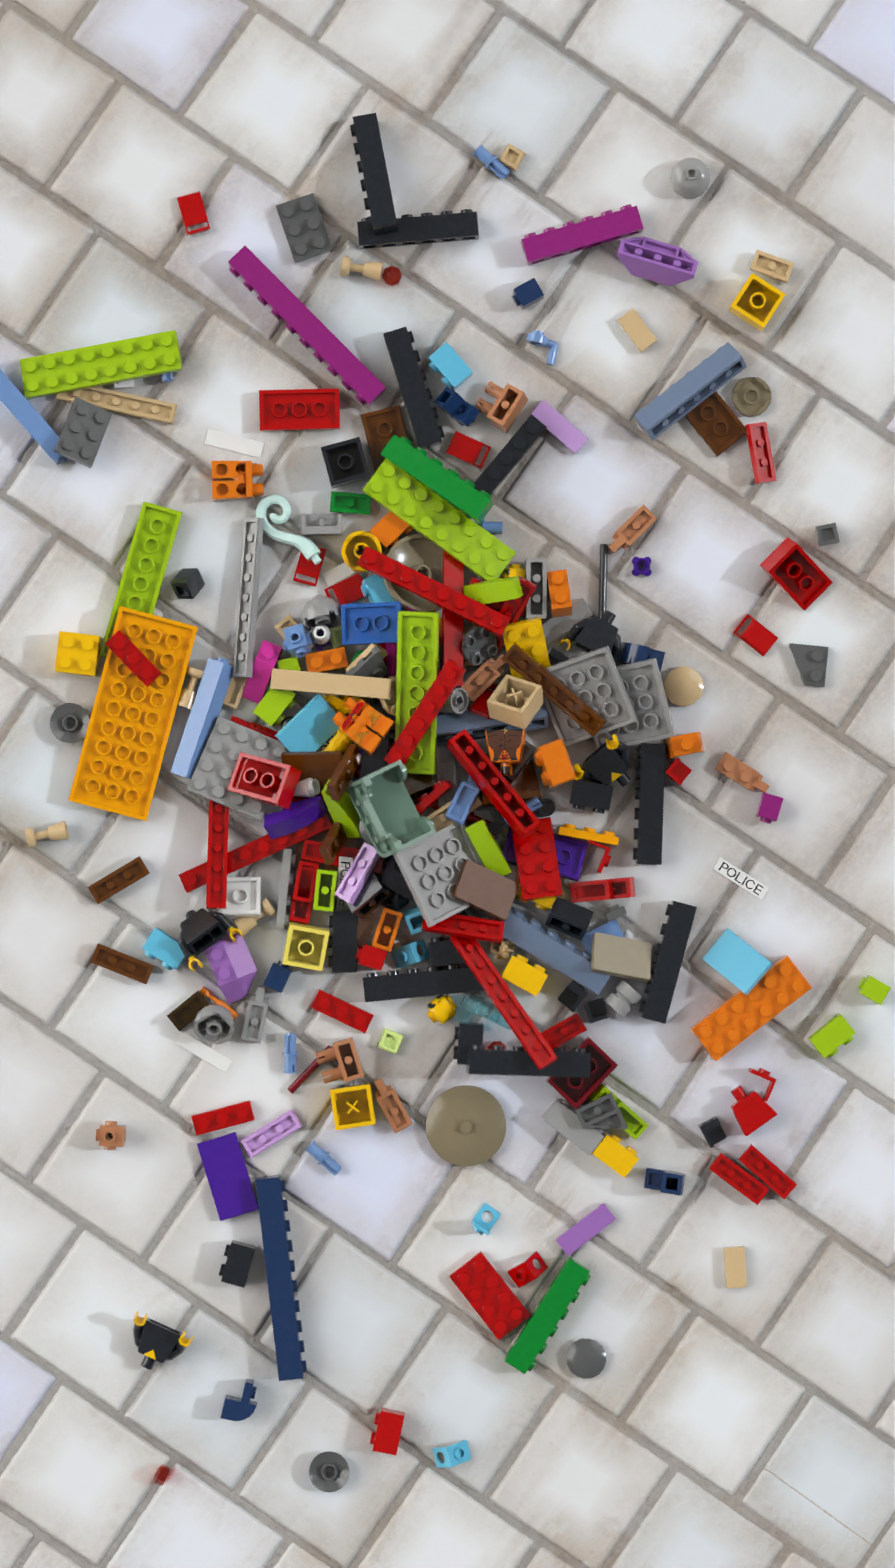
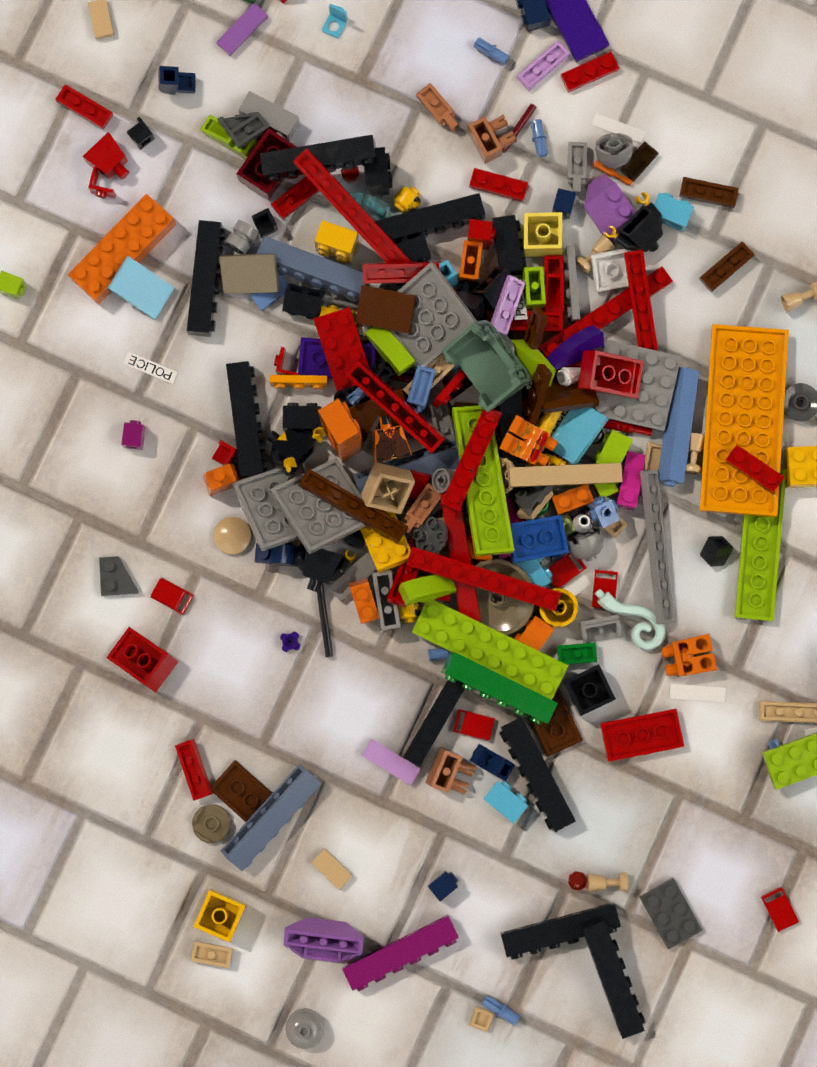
camera: 170 degrees right, 5 degrees down
(118, 1132) = (688, 37): nougat brick -> none
(306, 326) = (650, 817): magenta brick -> none
(352, 1106) = (473, 98): yellow brick -> none
(390, 1041) = (449, 165): yellowish green tile -> none
(408, 954) = (447, 243): medium azure bracket -> none
(466, 1125) = (367, 101): dark tan dish -> none
(502, 949) = (358, 261): tan gear -> none
(538, 339) = (425, 843): medium blue plate -> none
(572, 996) = (288, 232): black panel -> none
(602, 889) = (276, 334): red slope -> none
(615, 912) = (262, 314): dark grey plate -> none
(616, 1155) = (224, 97): yellow brick -> none
(632, 529) = (304, 675): nougat hinge -> none
(738, 1178) = (109, 96): red plate -> none
(741, 773) = (165, 463): nougat hinge -> none
(827, 534) = (118, 702): dark grey plate -> none
(831, 1036) = (43, 237): lime brick -> none

